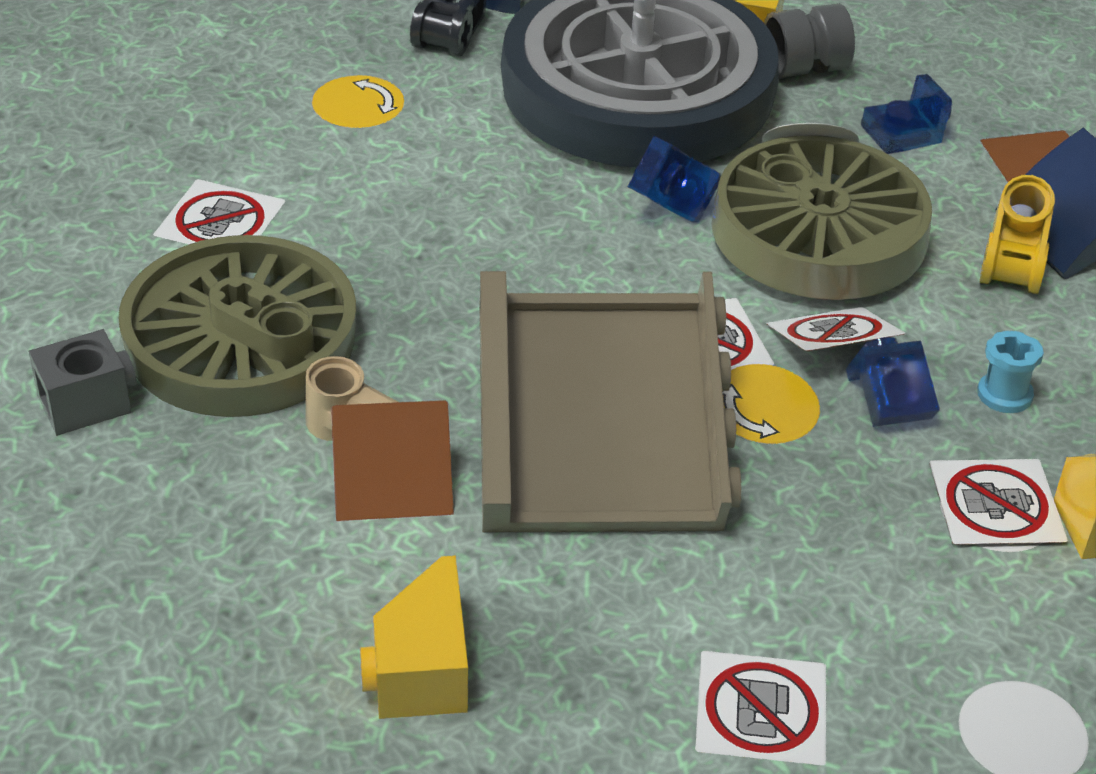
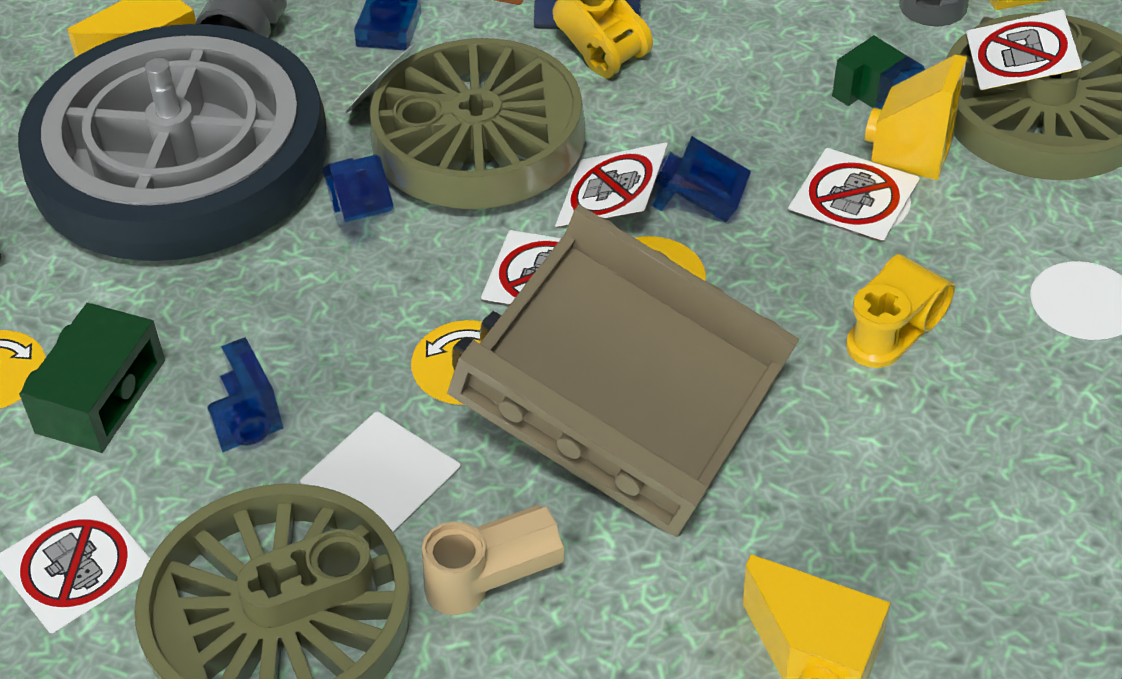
camera: 55 degrees left, 5 degrees up
(375, 140) = (92, 377): none -> dark green brick
(392, 460) = (572, 557): dark orange sticker -> none
(414, 332) = (384, 469): none -> white sticker
(418, 225) = (249, 403): none -> clear blue bracket
(762, 708) = (981, 440): sticker -> none
(859, 572) = (896, 311): none -> yellow piece
(1010, 371) = (740, 109): medium azure bush -> none

